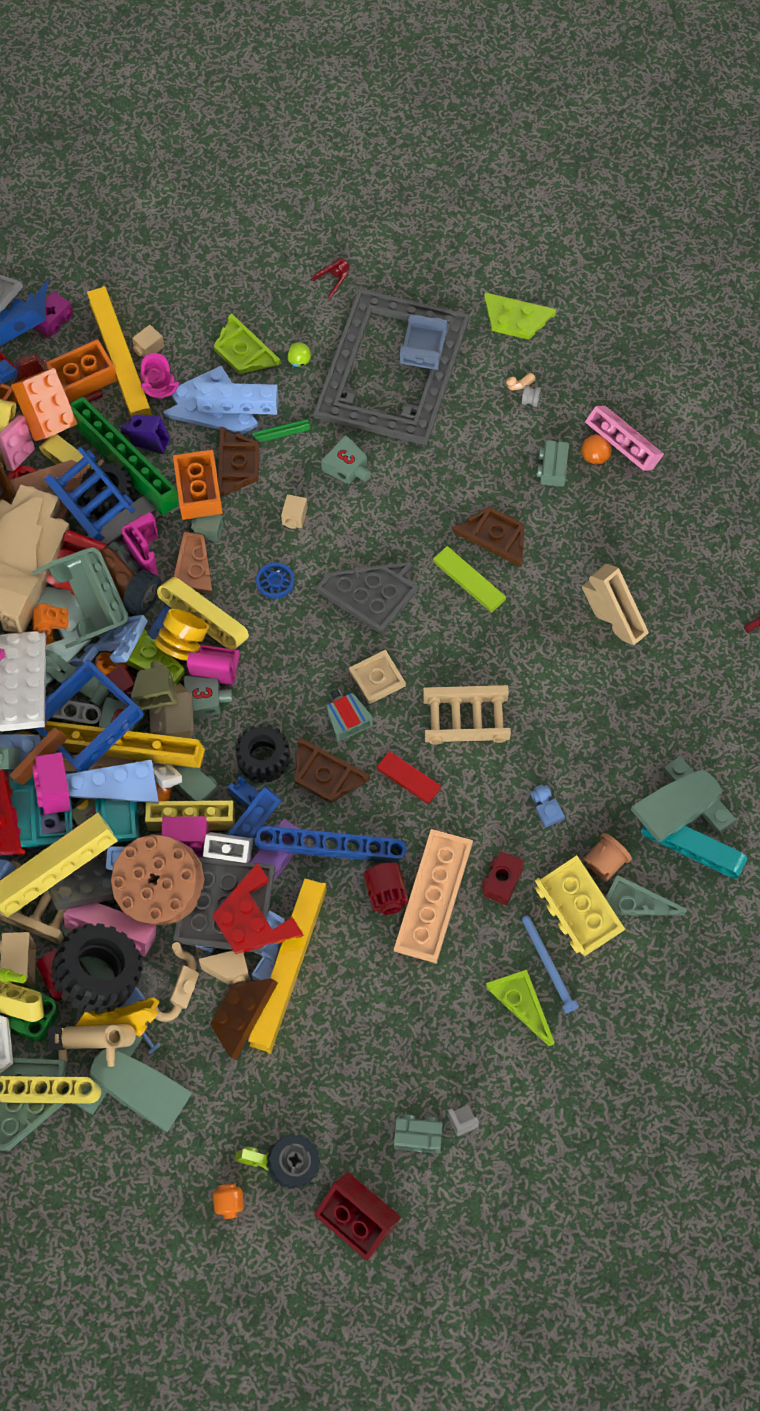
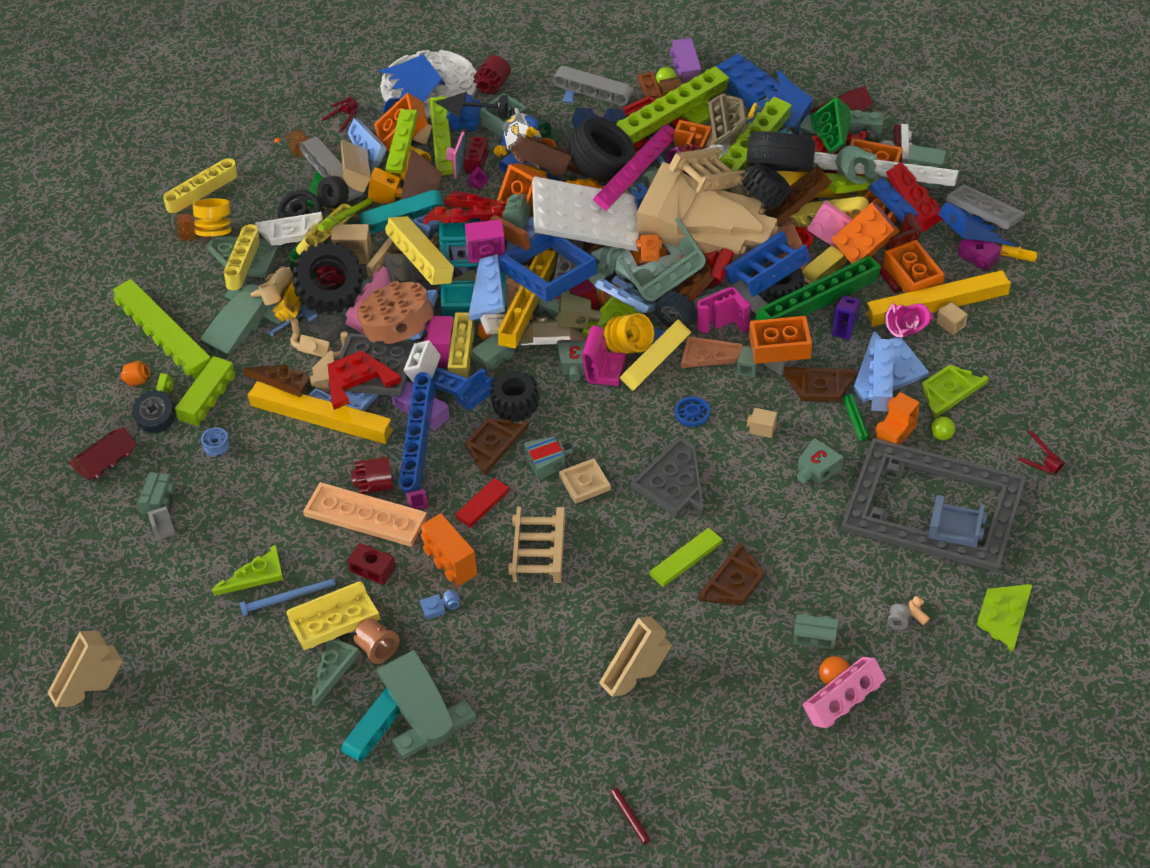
camera: 95 degrees right, 15 degrees down
(54, 278) = (1018, 253): none -> yellow axle
(150, 1182) = (161, 328): none -> lime brick
(256, 1106) = (205, 391): none -> lime brick
(294, 389) = (900, 419): none -> orange brick
(333, 1071) = (215, 441): none -> medium blue wheel
(412, 843) = (417, 499): none -> magenta slope
(487, 795) = (448, 550): none -> orange brick
(687, 1148) = (87, 667): none -> tan brick

